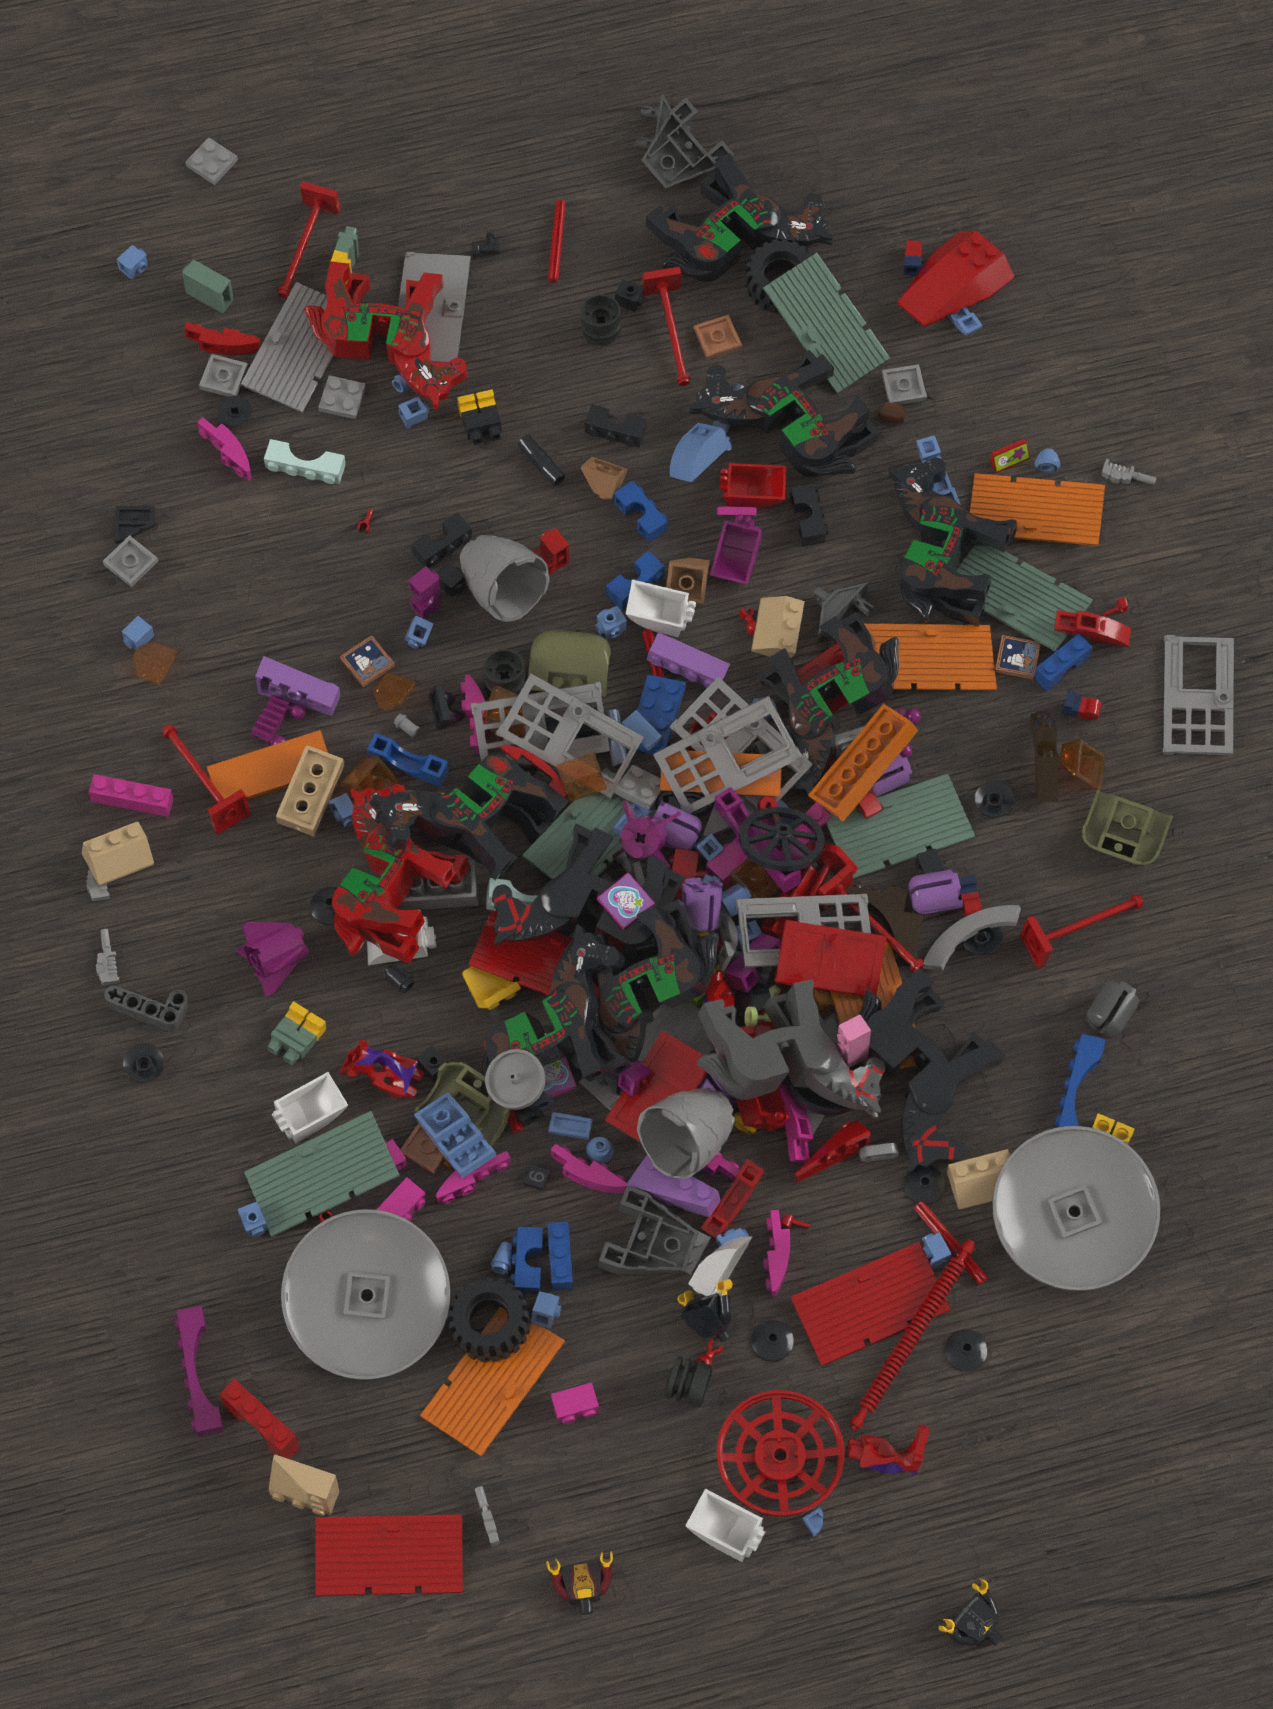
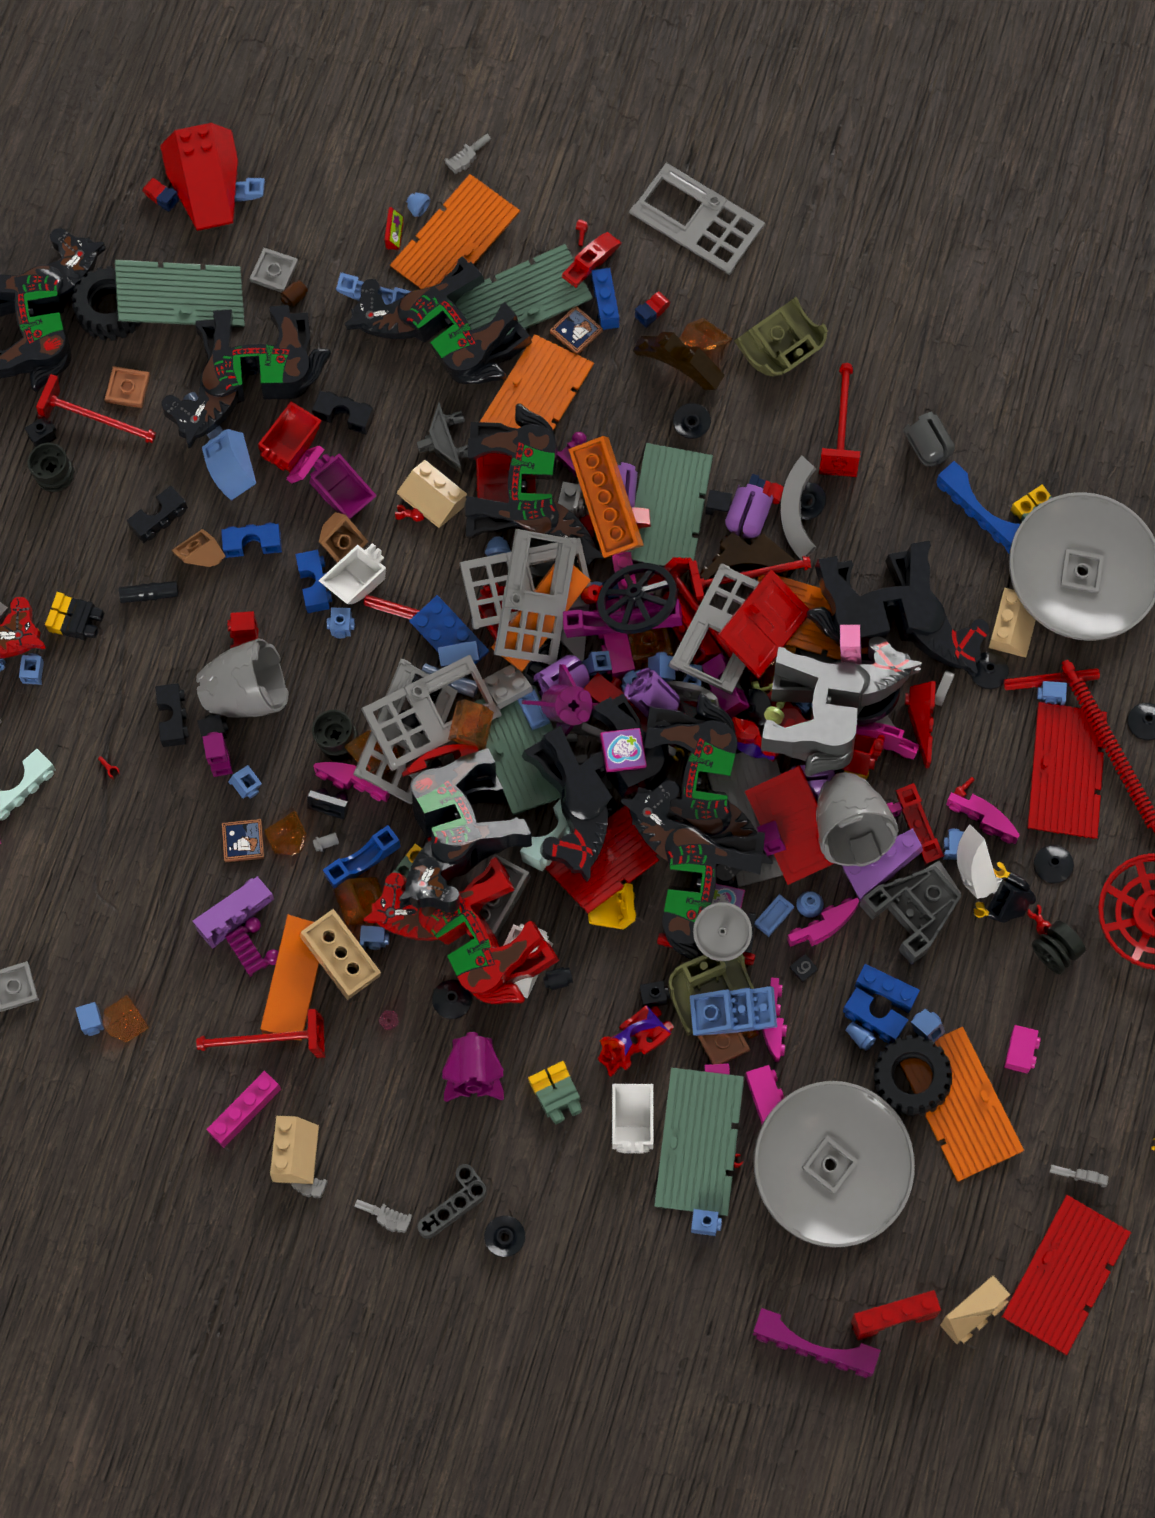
camera: 55 degrees left, 5 degrees up
(279, 860) = (388, 1015): none -> clear pink plate
(570, 659) = (355, 675): olive piece -> none
(686, 660) = (418, 582): medium lavender brick -> none

